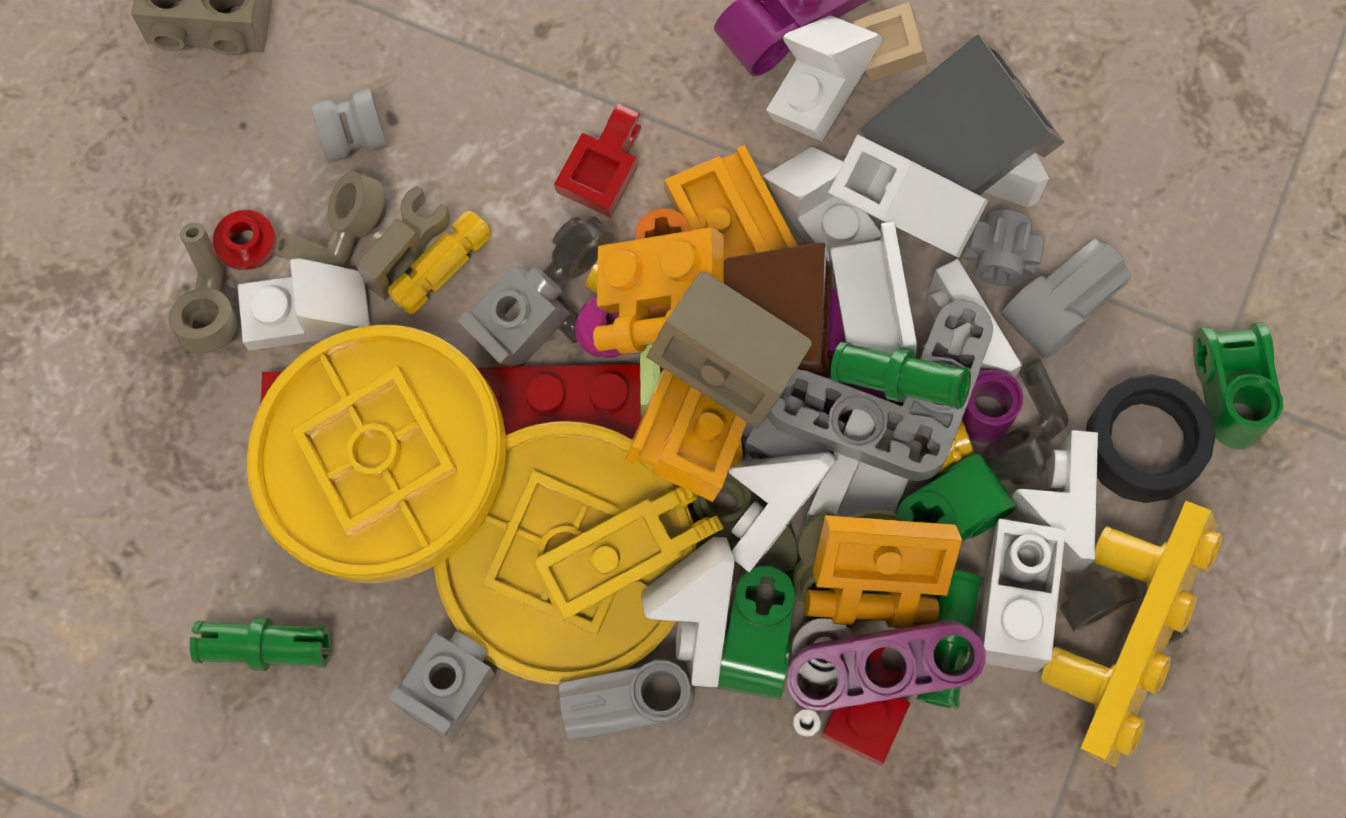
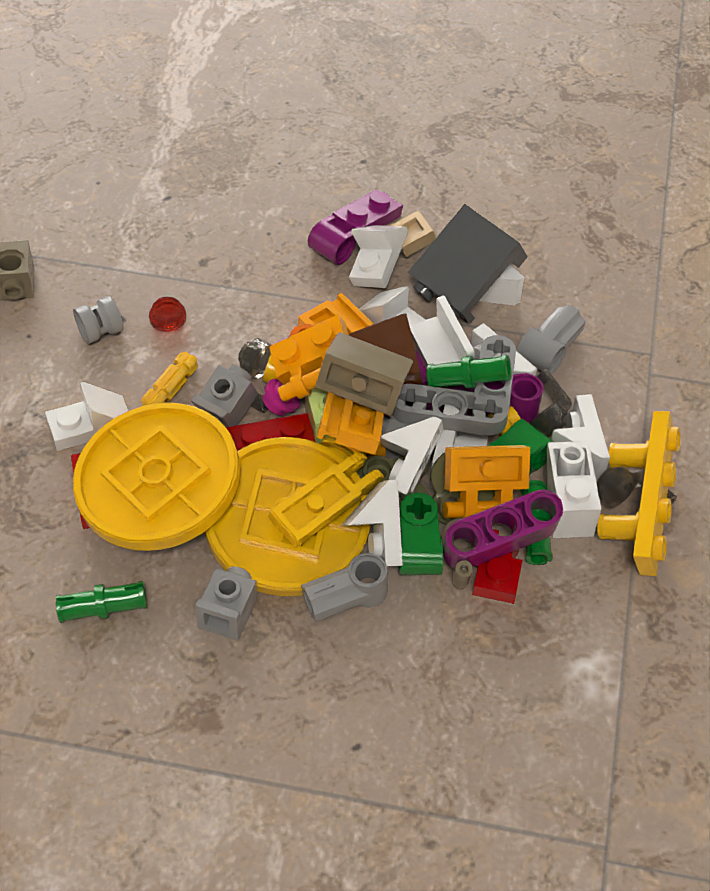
camera: 15 degrees left, 20 degrees down
(204, 316) = (27, 431): dark tan plate -> none
(249, 255) = (44, 390): red plate -> none
(353, 211) = (109, 362): dark tan plate -> none
(393, 251) = (143, 374): dark tan plate -> none
(461, 132) = (167, 314): none -> clear red plate
(602, 168) = (257, 318): red plate -> none
(908, 196) = (431, 279): white slope -> none
(1004, 248) = (508, 317): light grey gear -> none
(1174, 400) = (630, 380): black tyre -> none
(1238, 370) = (663, 366): green piece -> none

